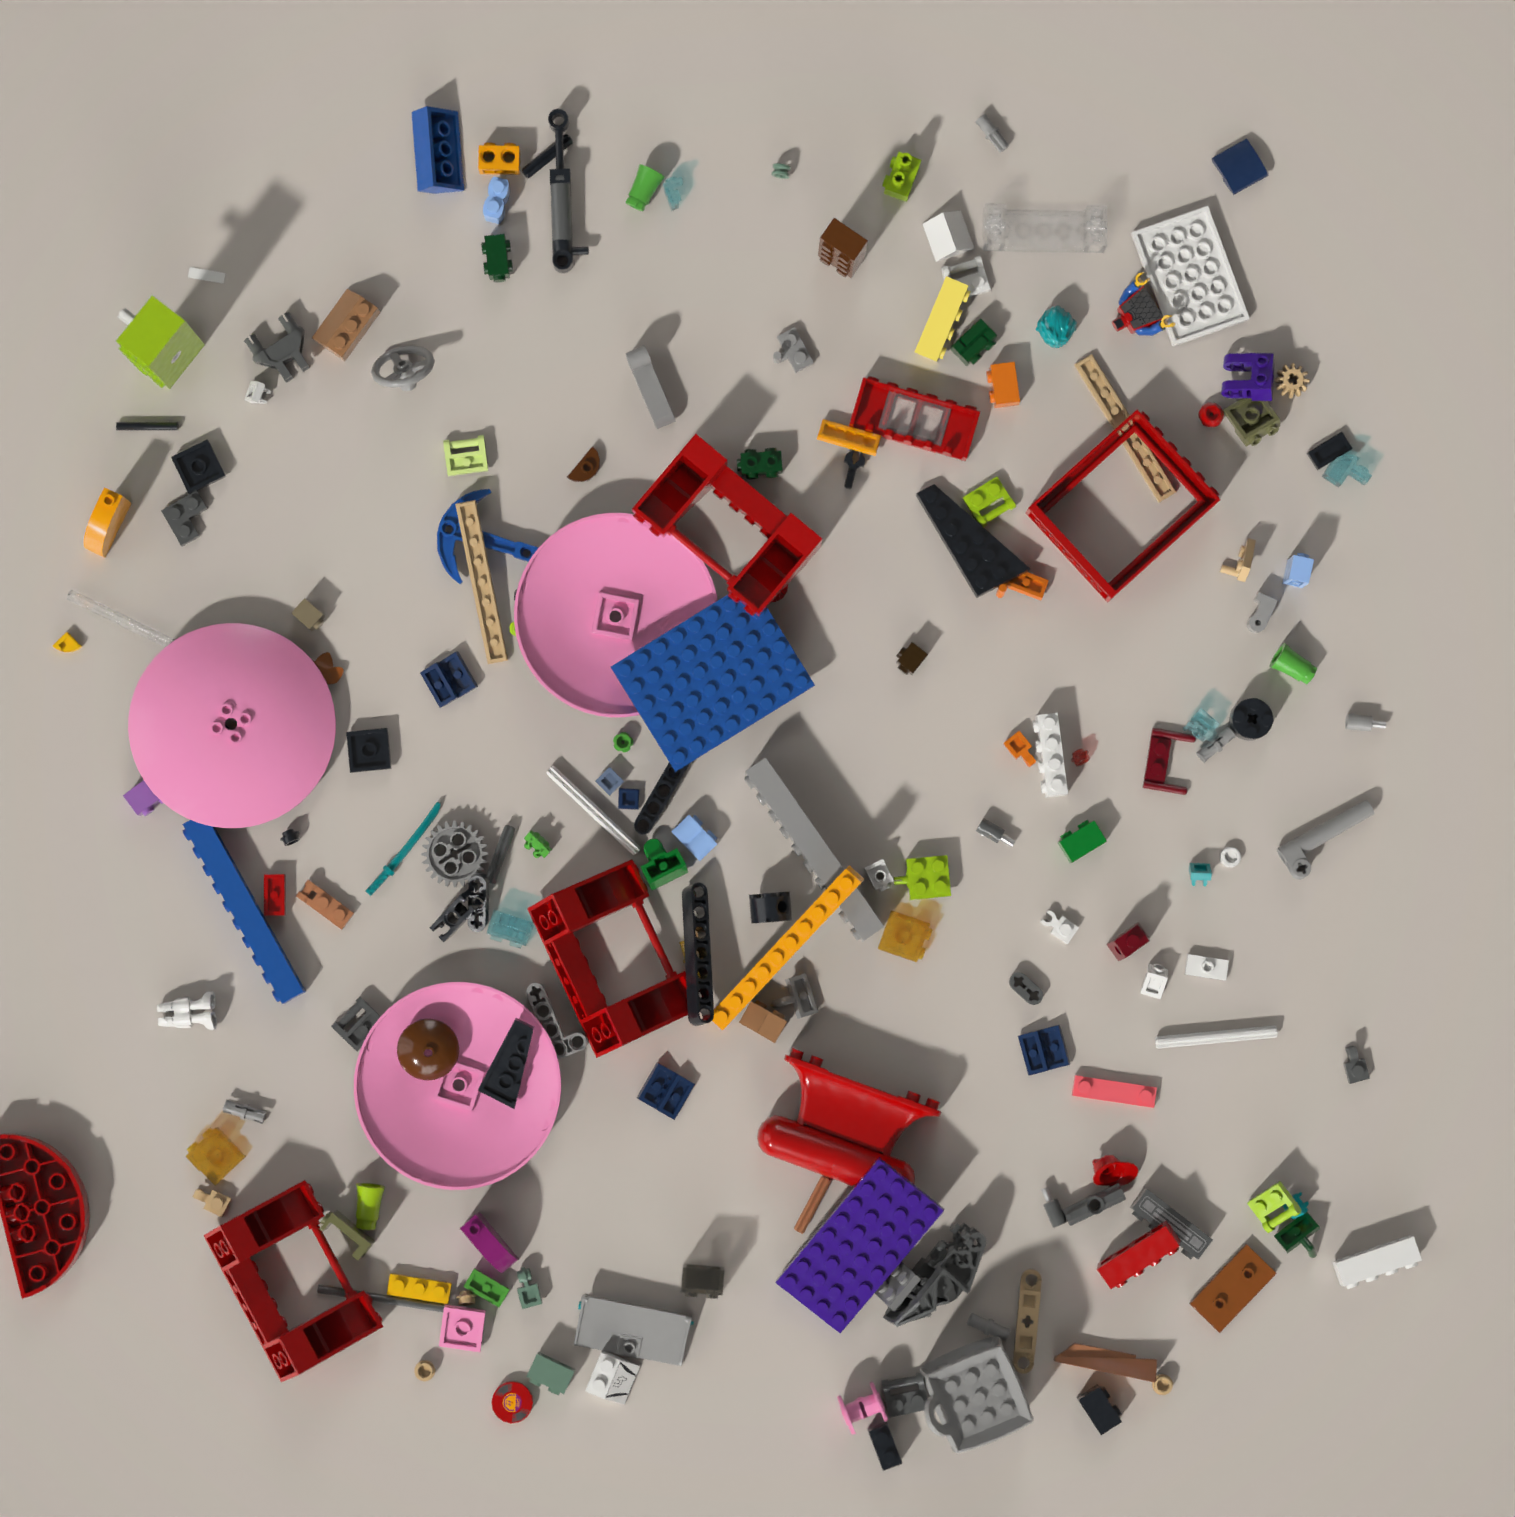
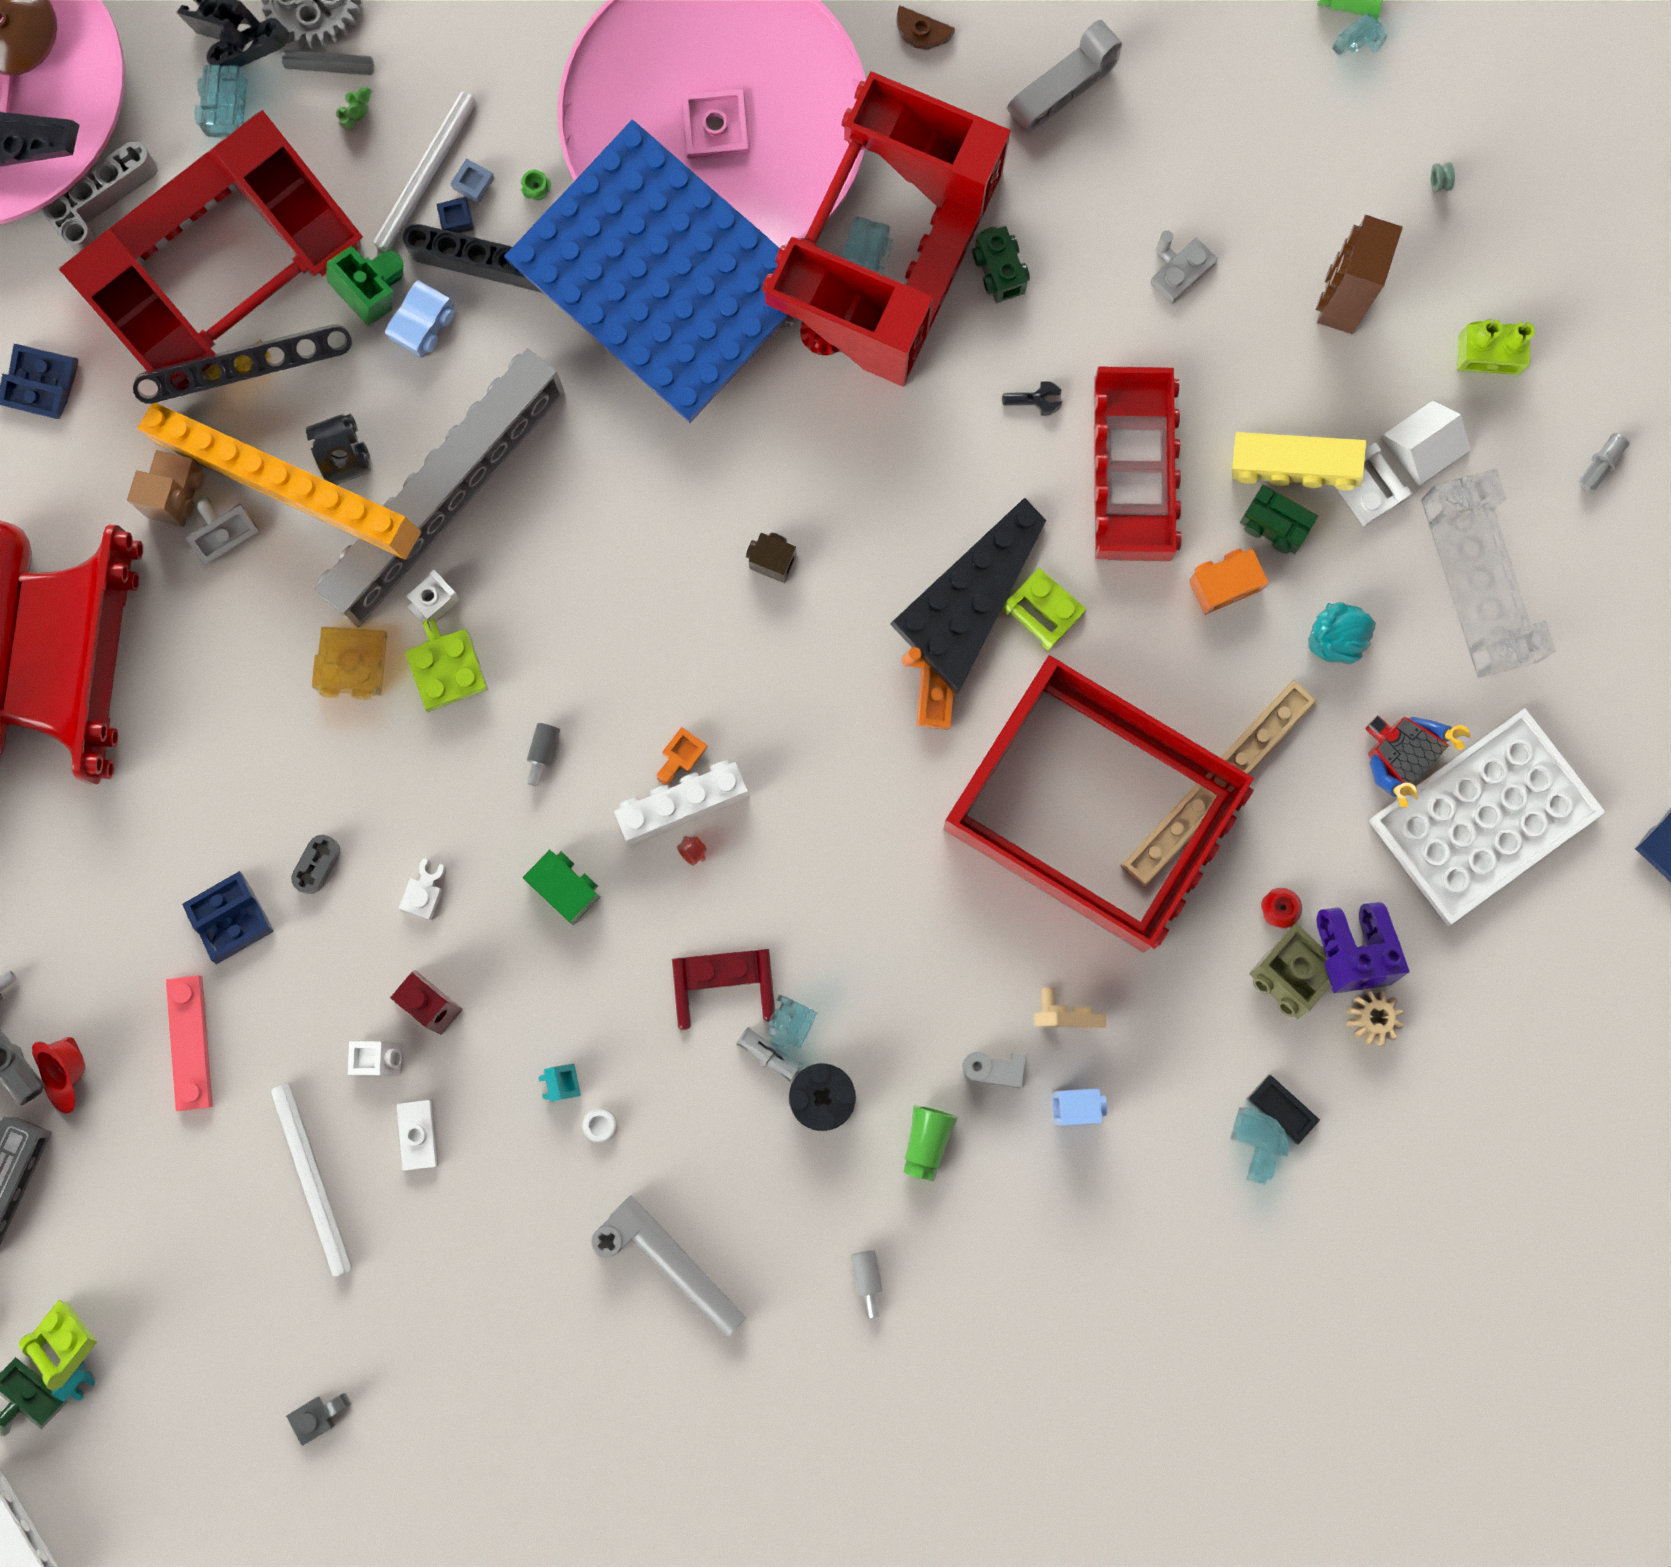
camera: 80 degrees right, 5 degrees down
(731, 547) = (868, 244): none -> clear light blue brick
(849, 437) = (1078, 378): light orange plate -> none

